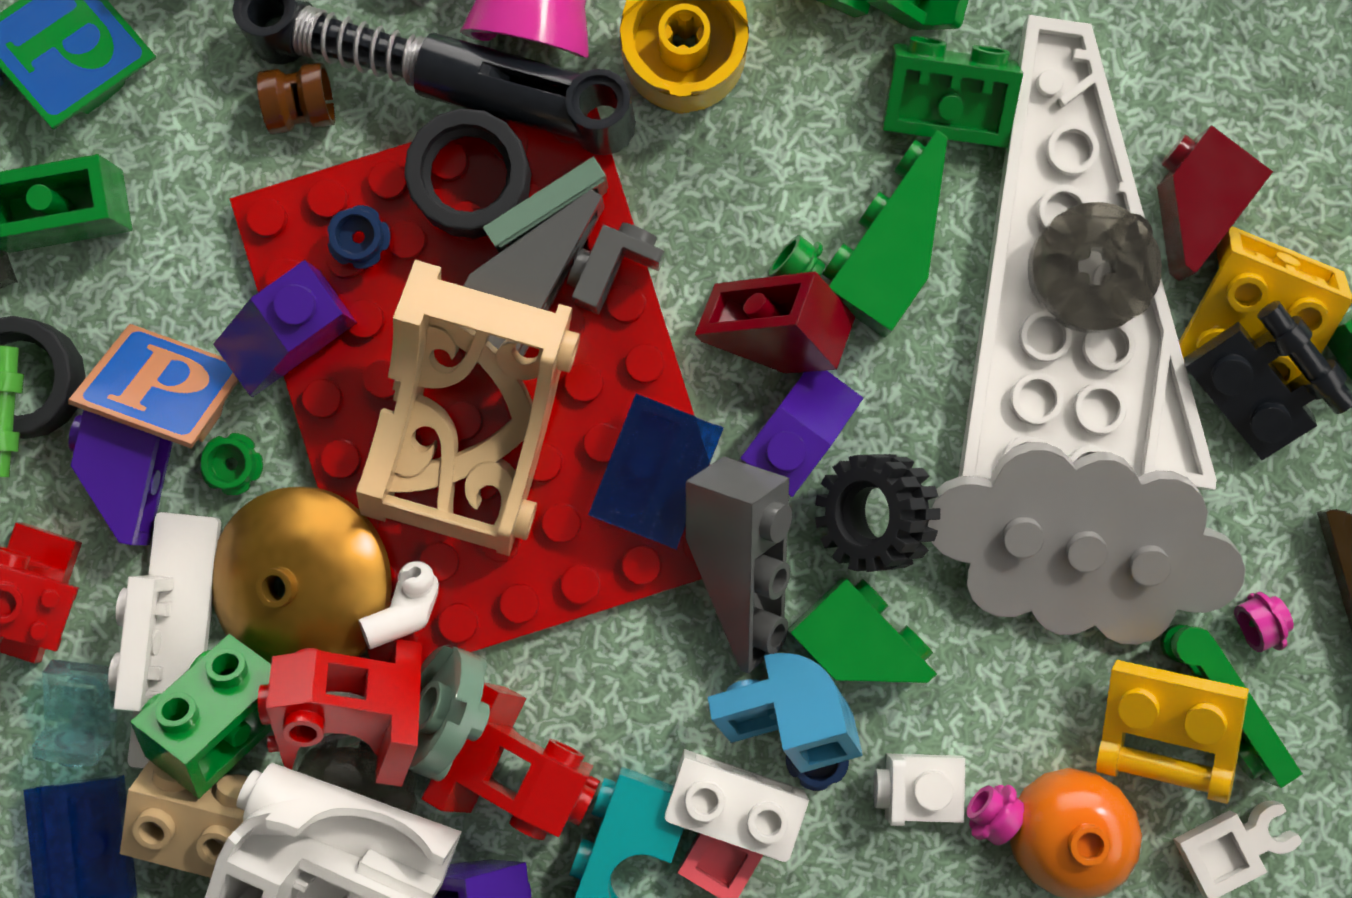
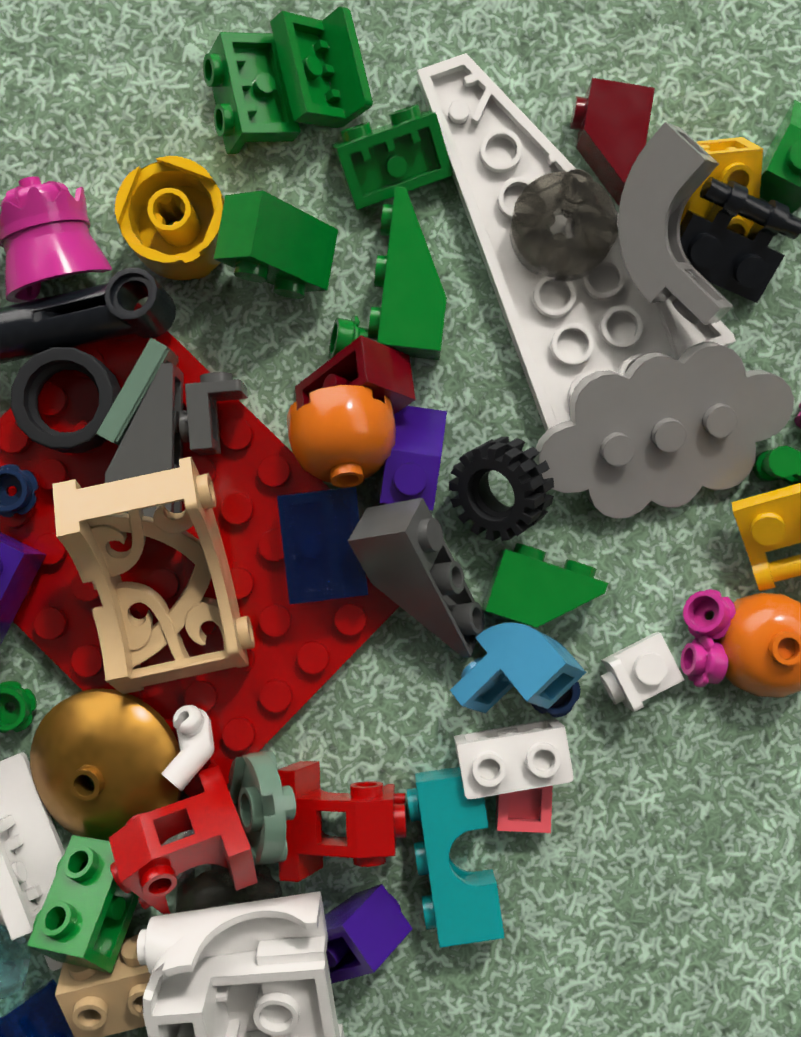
camera: 30 degrees left, 0 degrees up
(739, 365) = (342, 434): none -> orange cylinder
(776, 125) = (275, 244): none -> green brick
(1024, 751) = (699, 605): none -> dark pink plate
(1187, 318) = (650, 220): none -> light grey arch

